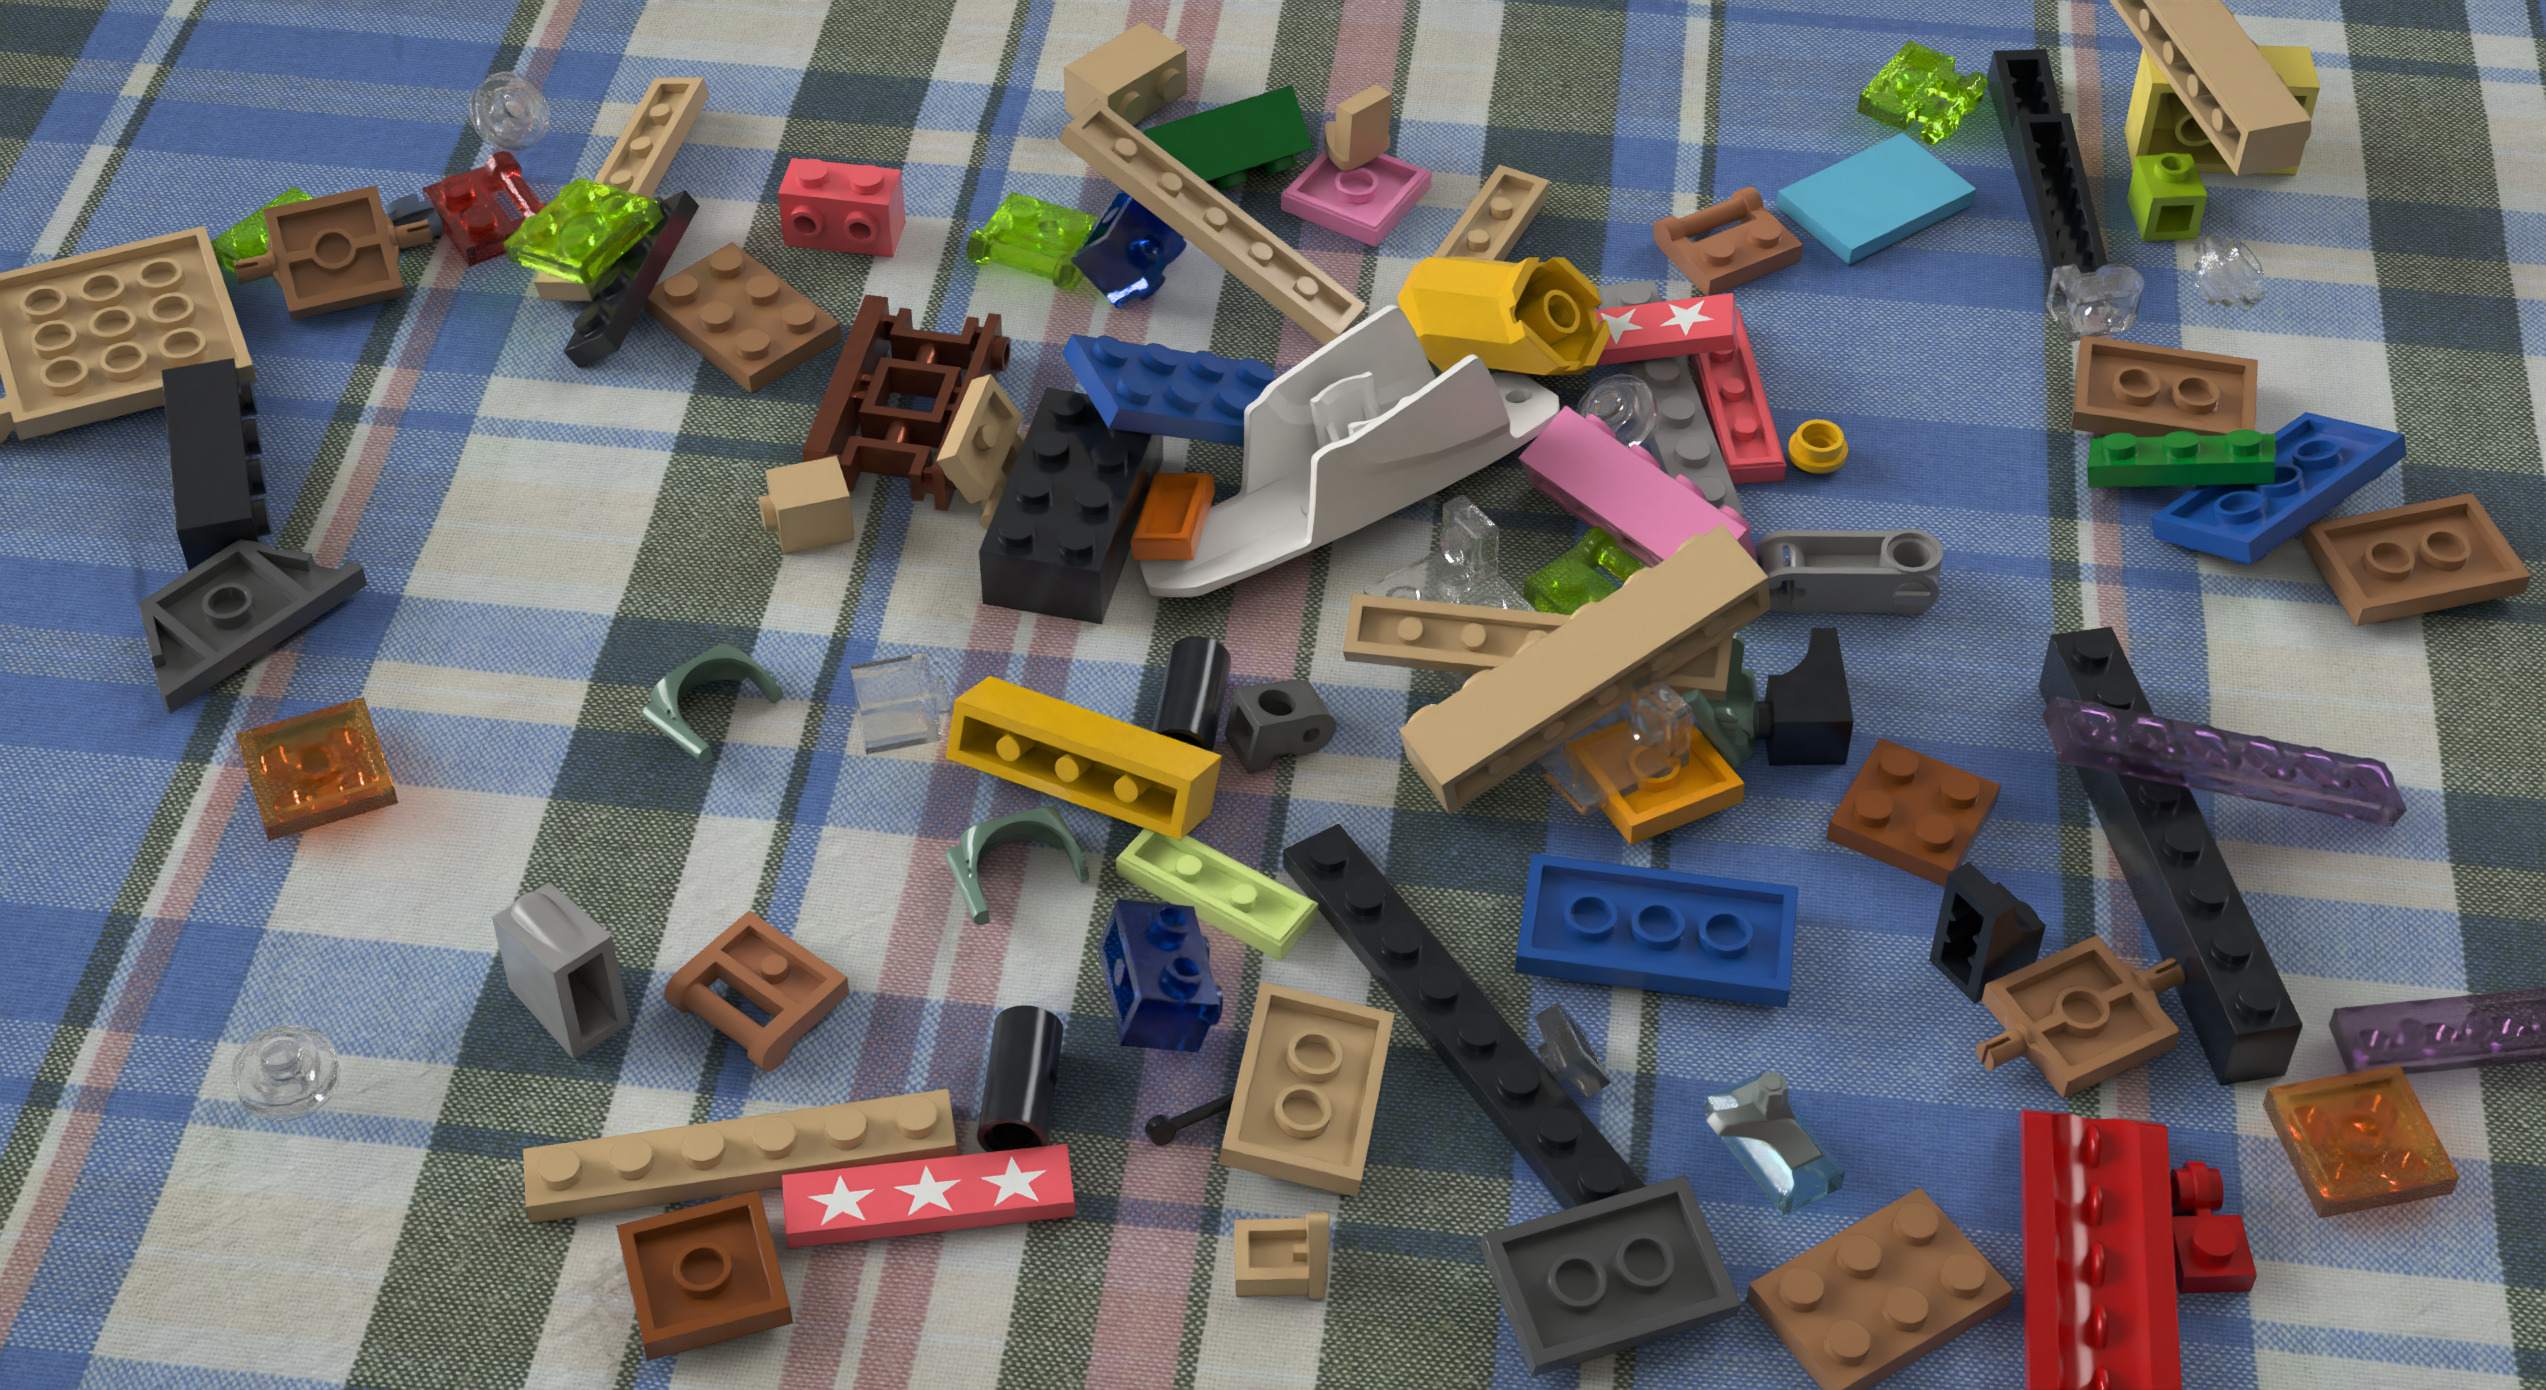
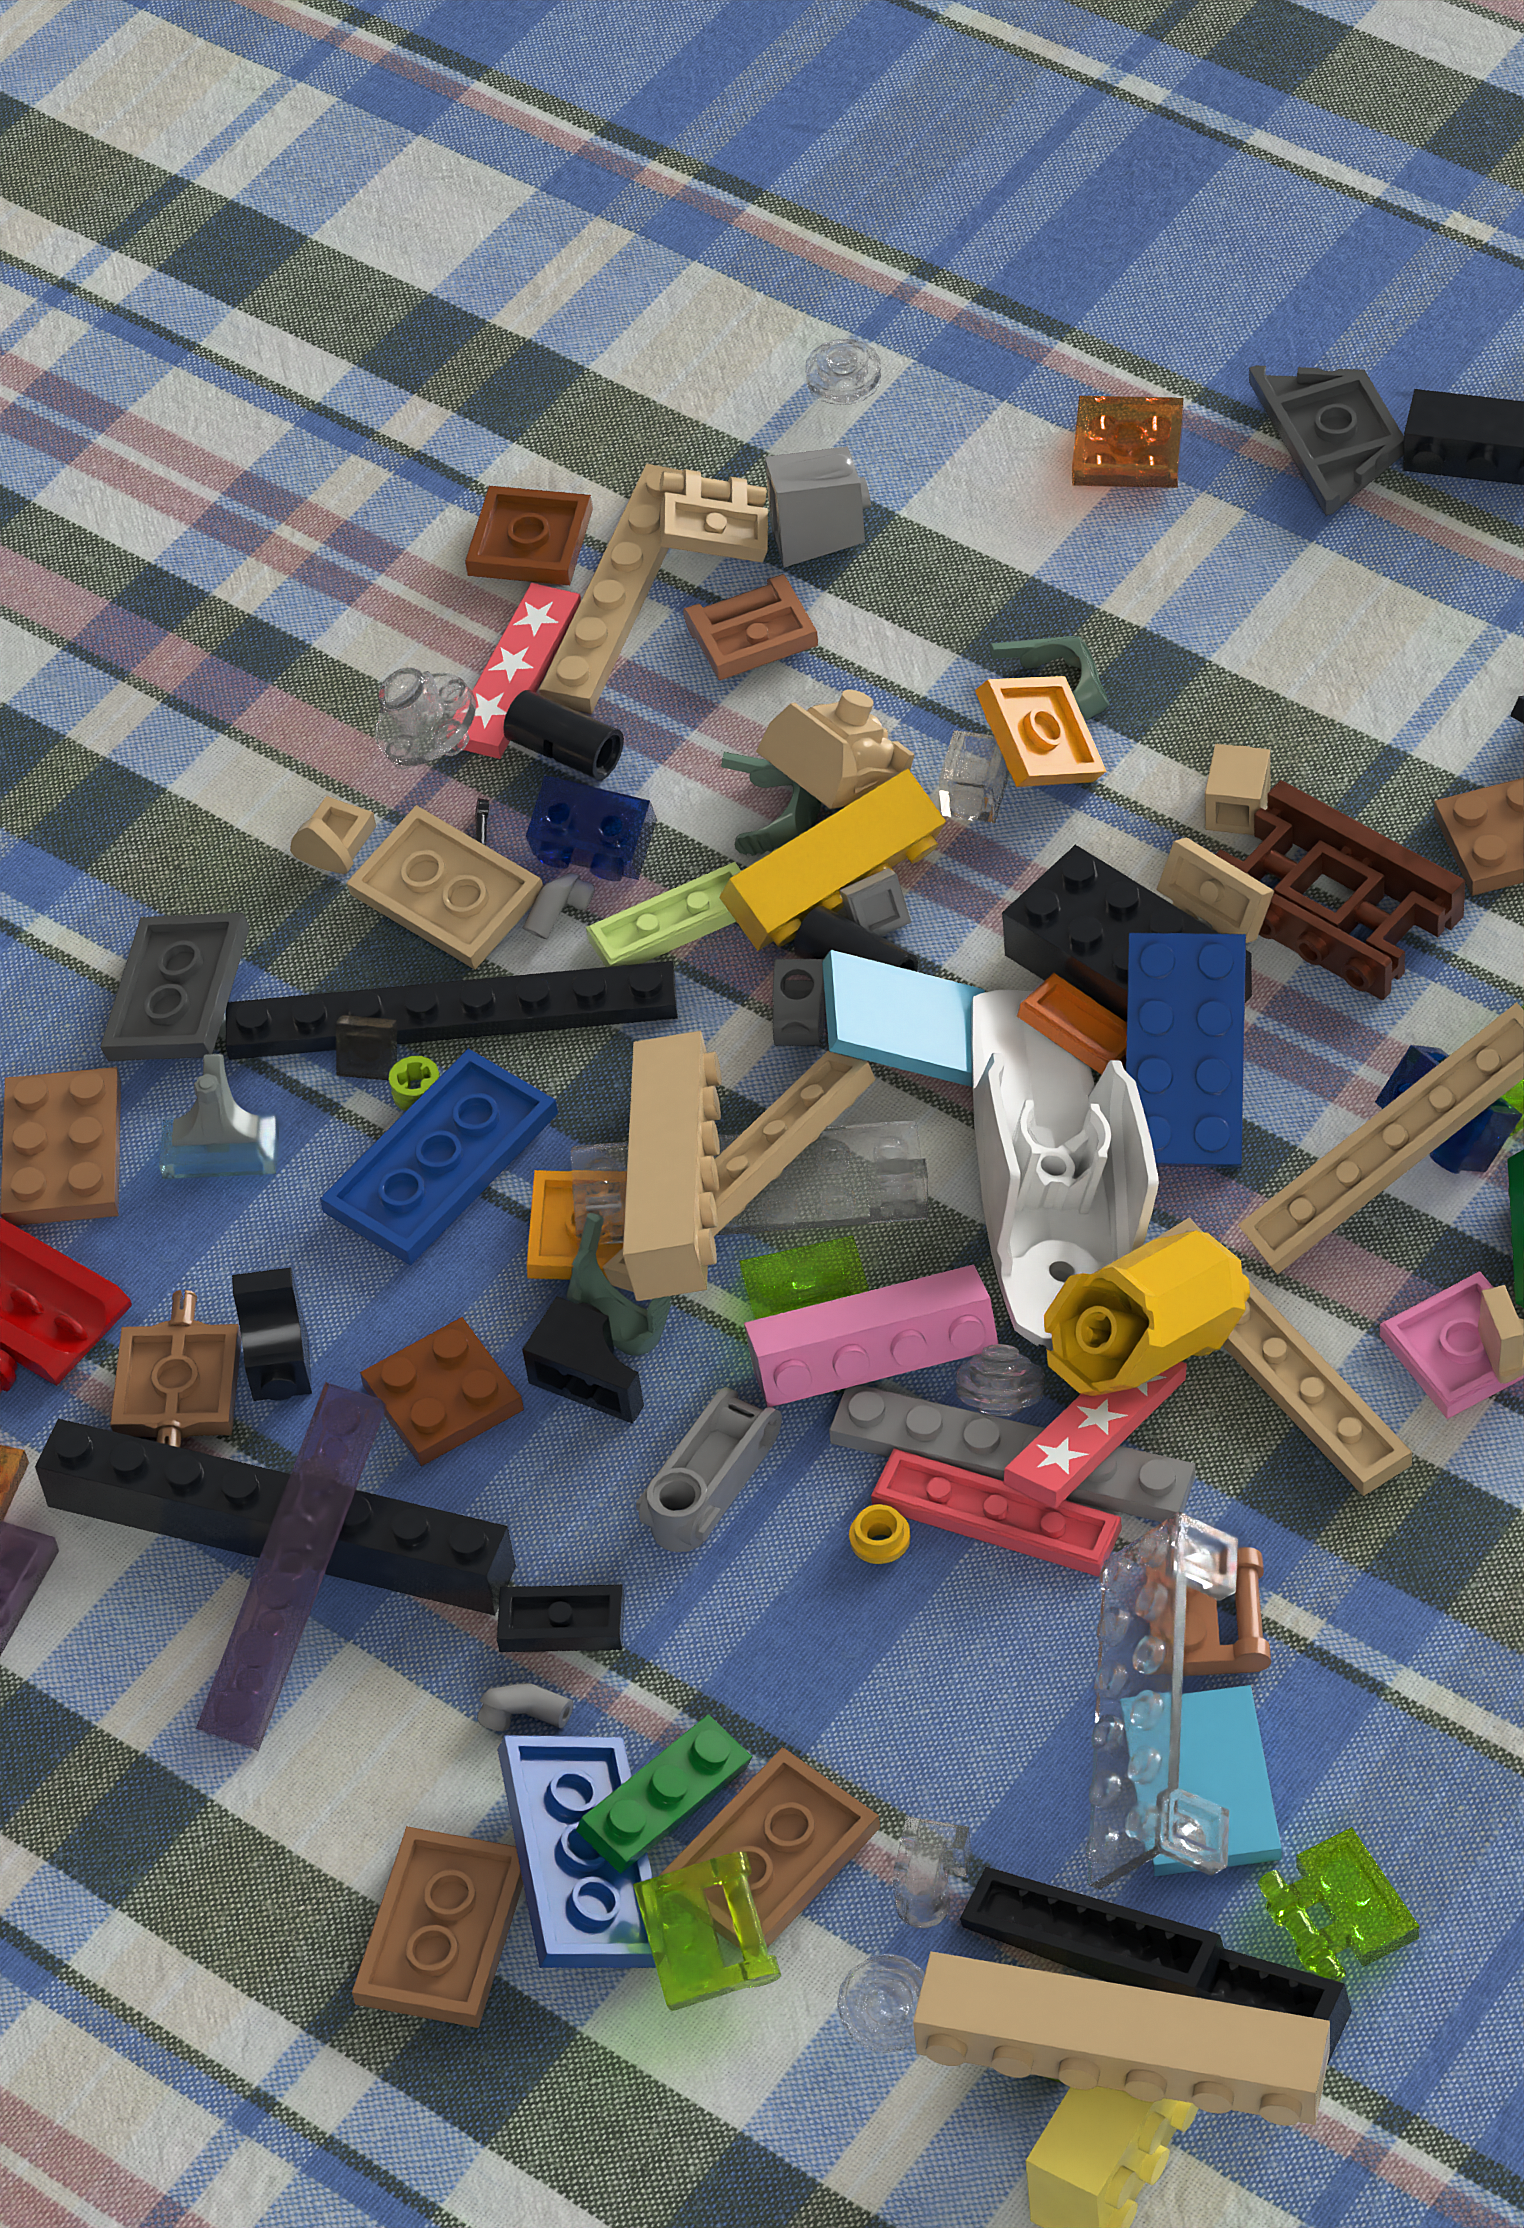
camera: 125 degrees right, 5 degrees up
(603, 1075) = (713, 516): none -> tan plate
(830, 644) = (1040, 731): none -> light orange plate
(939, 800) = (834, 749): none -> tan brick
(1071, 1224) = (423, 716): none -> clear plate
(1116, 704) = (876, 903): none -> light grey tile
(1242, 977) = (555, 897): none -> light grey arm
(1270, 610) = (898, 1017): none -> tile
(1580, 987) = (408, 1070): none -> lime bush
(1855, 218) = (1139, 1703): none -> clear bracket
(2071, 600) = (560, 1618): none -> black plate
(2175, 608) = (523, 1698): none -> light grey arm
(2287, 391) = (685, 1934): none -> clear neon green plate

